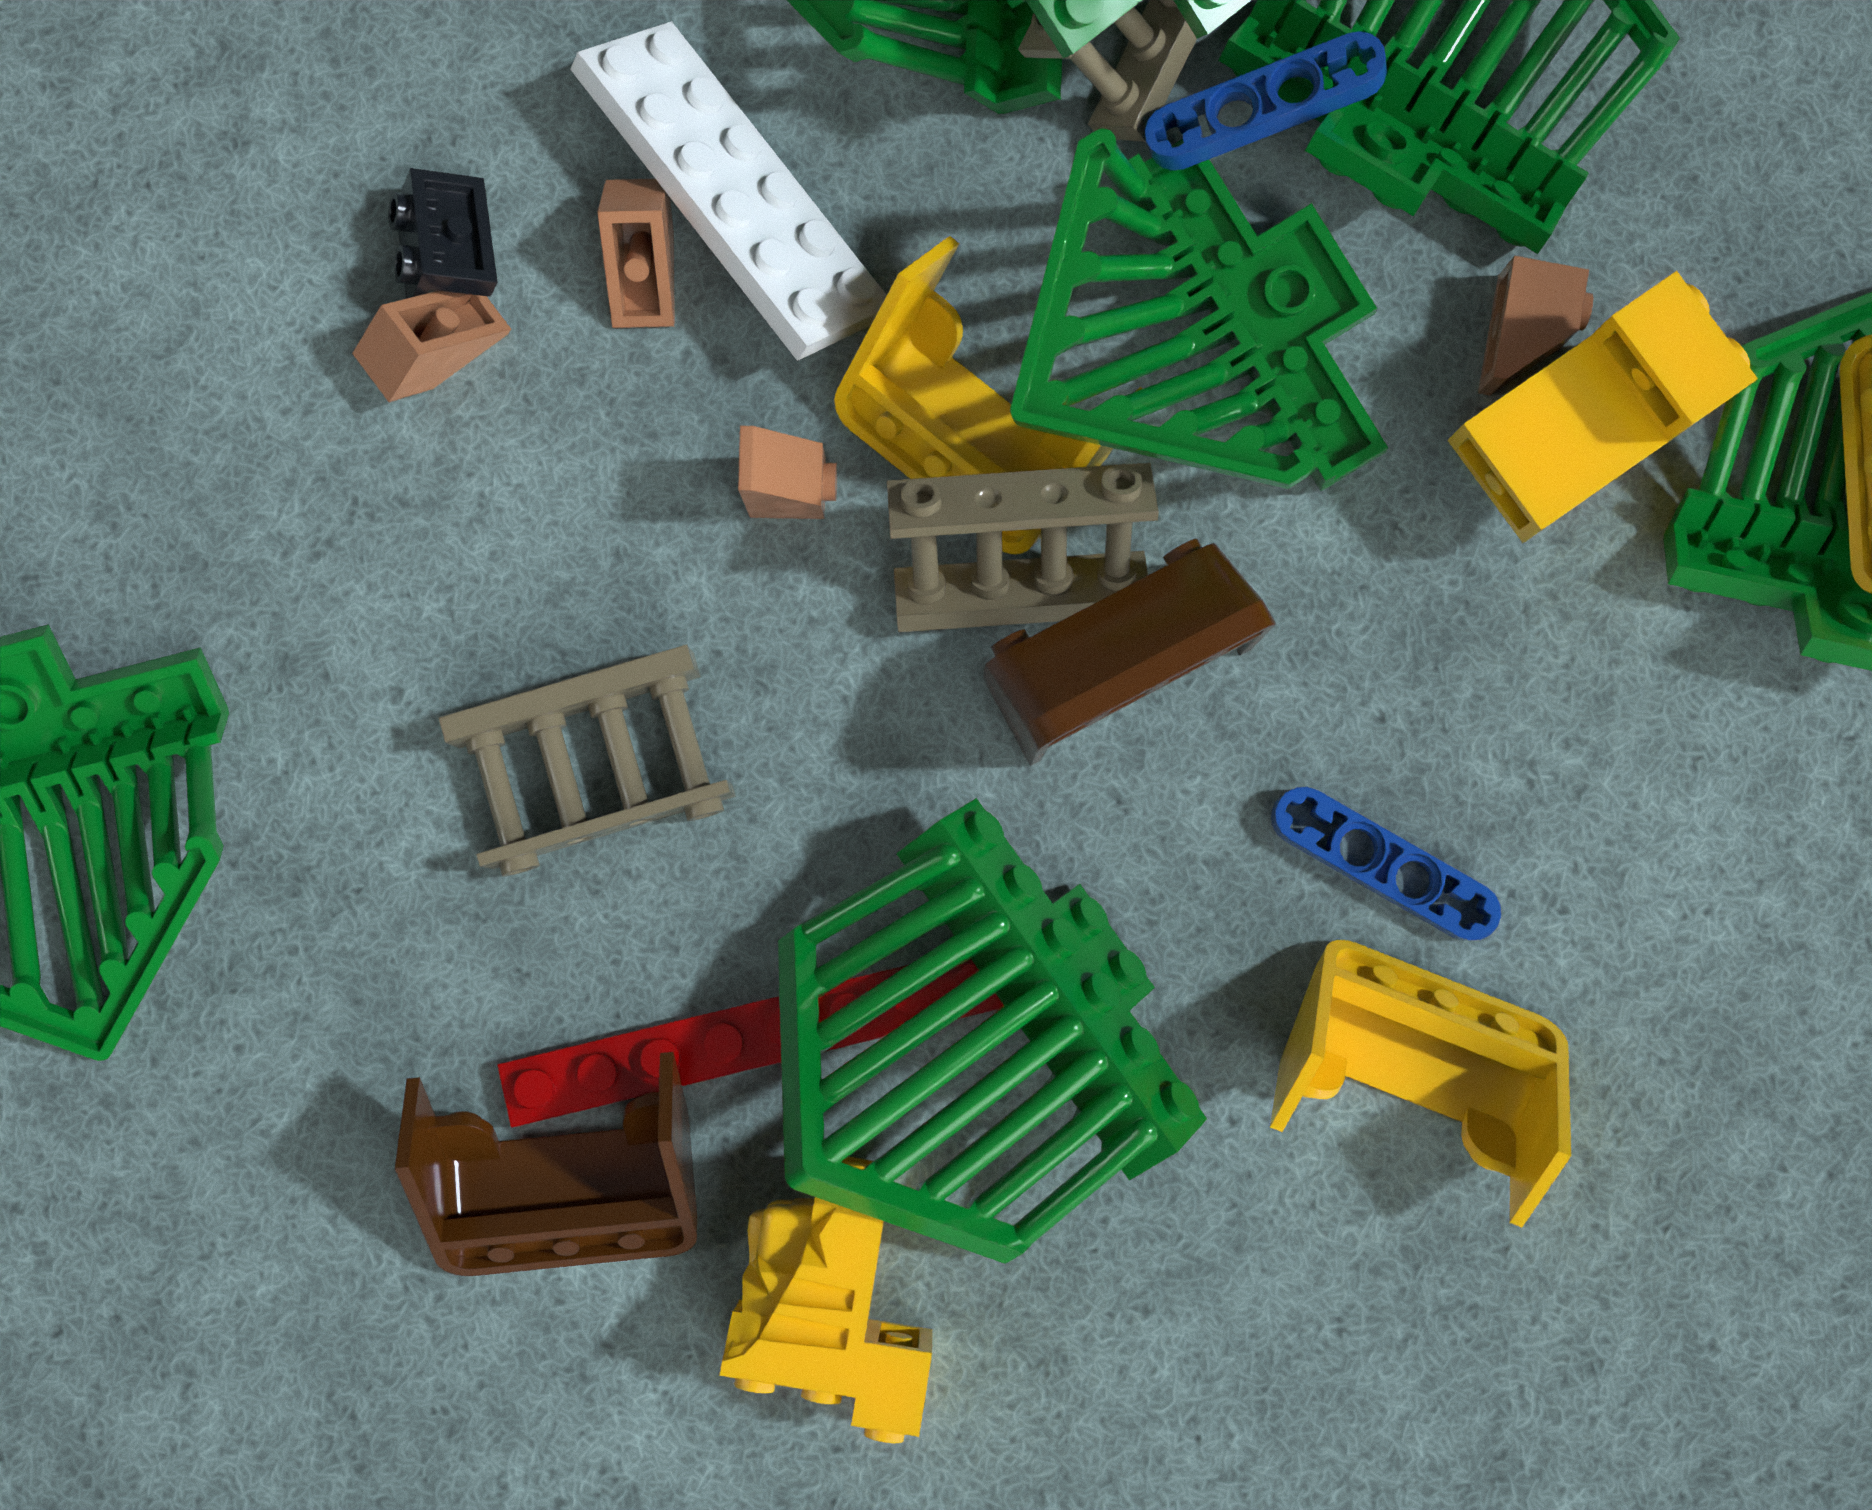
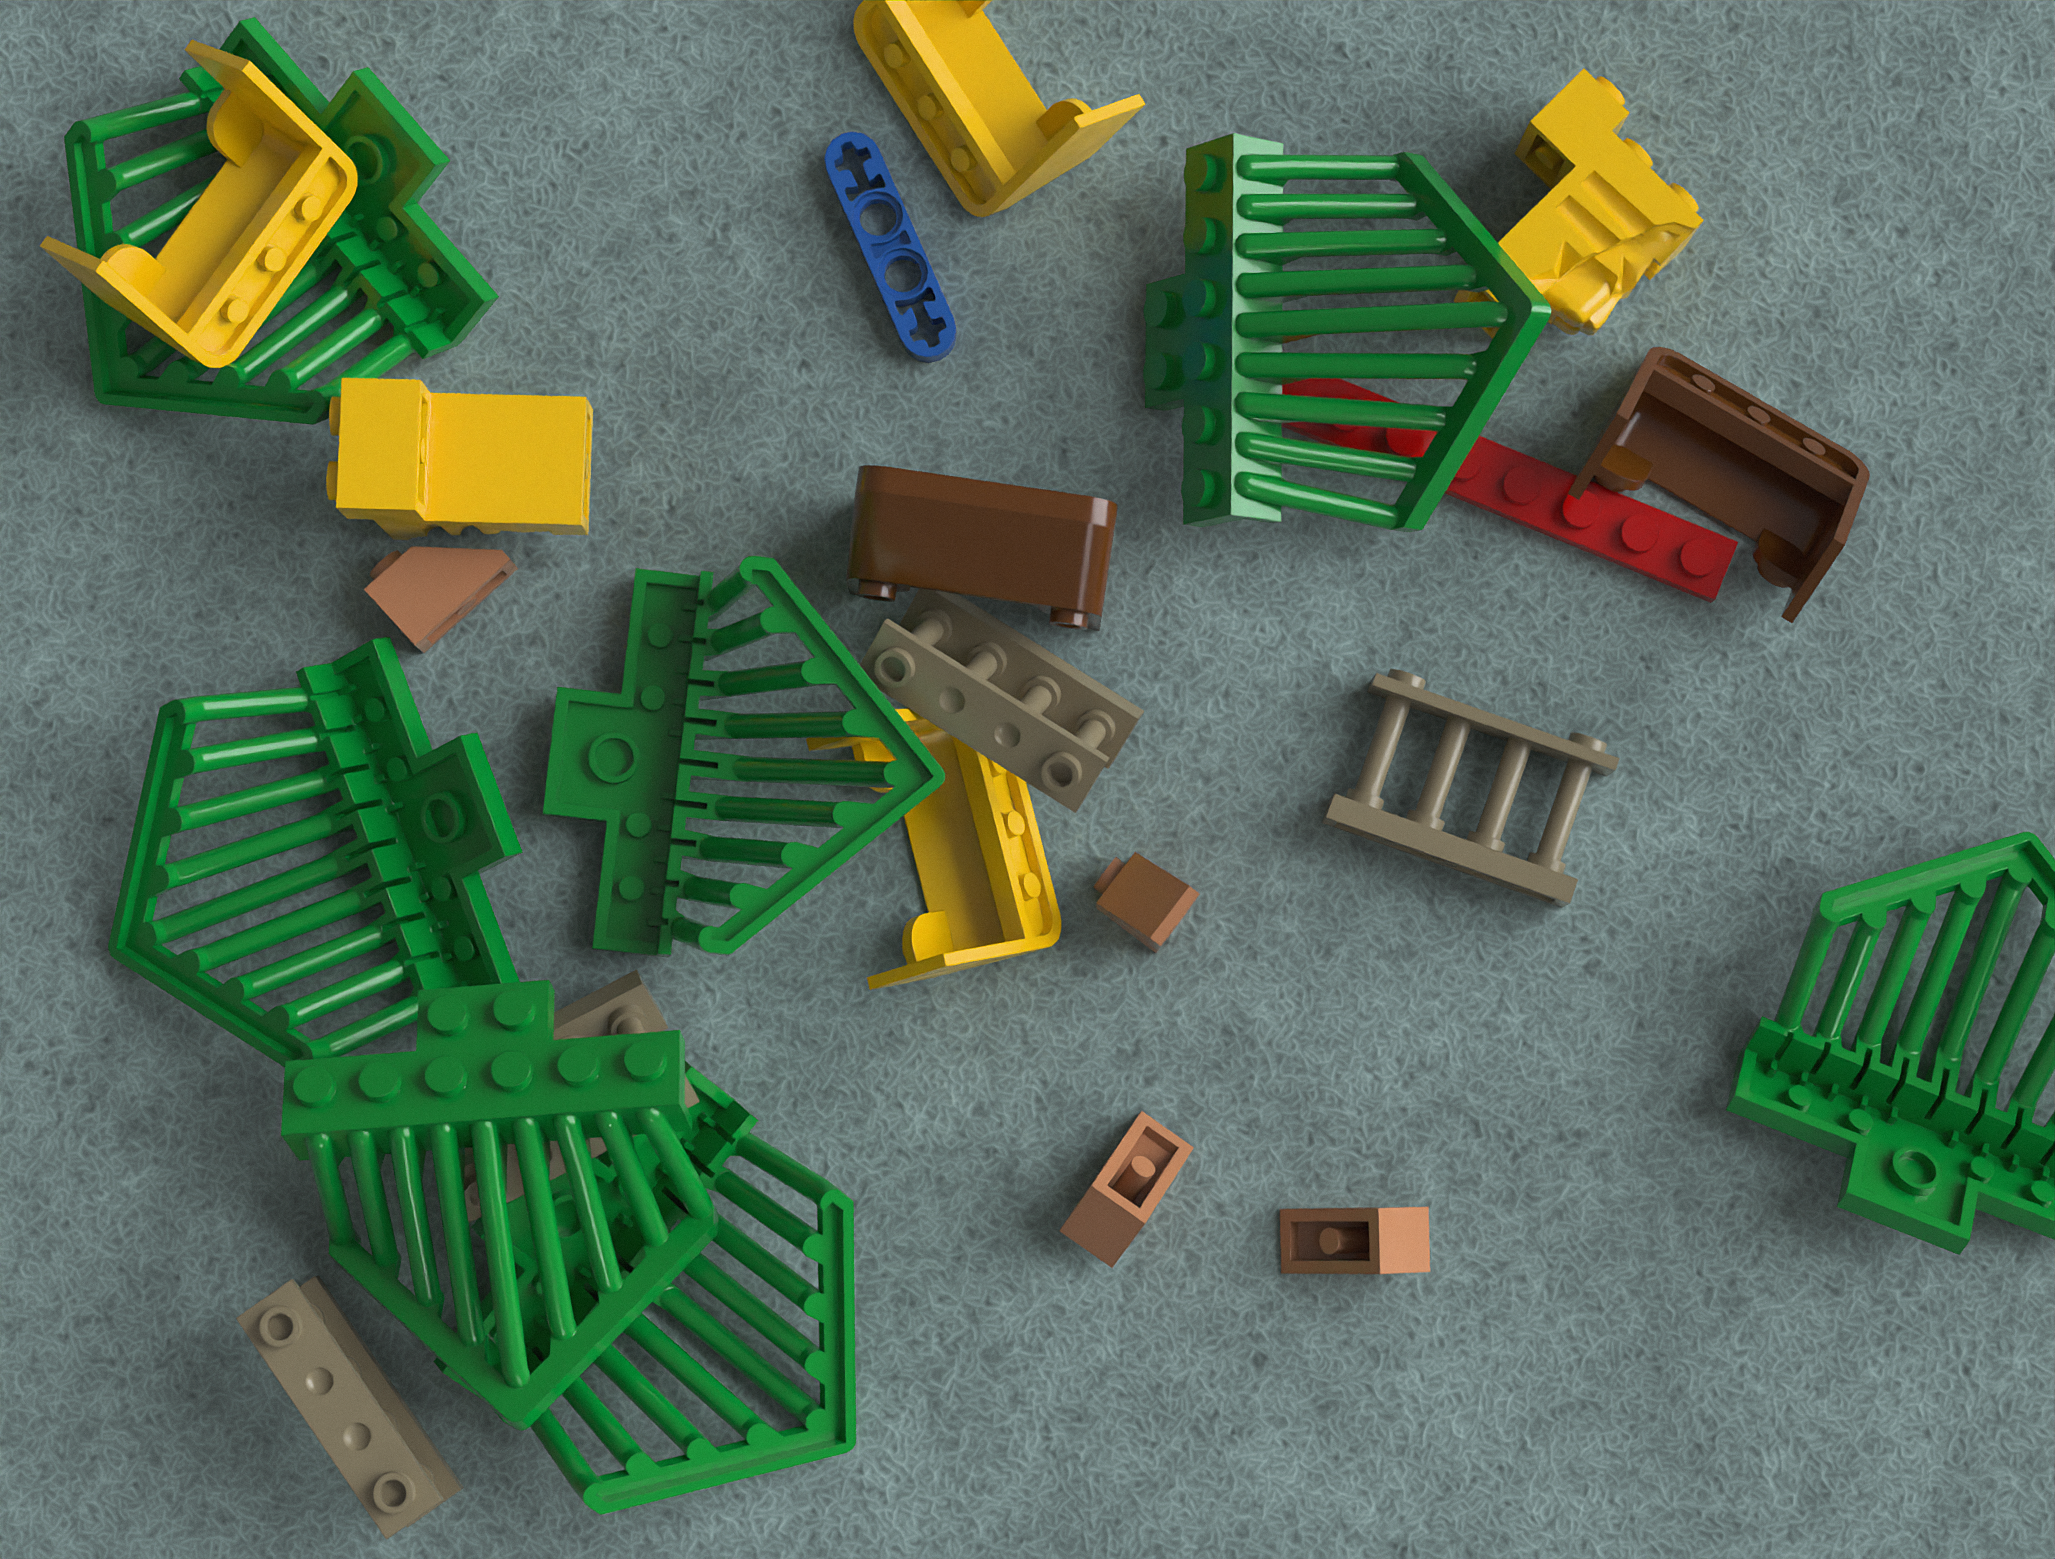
camera: 145 degrees left, 0 degrees up
(442, 234) = (1284, 1321): black bracket -> none
(731, 187) = (1010, 1183): white plate -> none
(1260, 91) = (518, 927): blue beam -> none

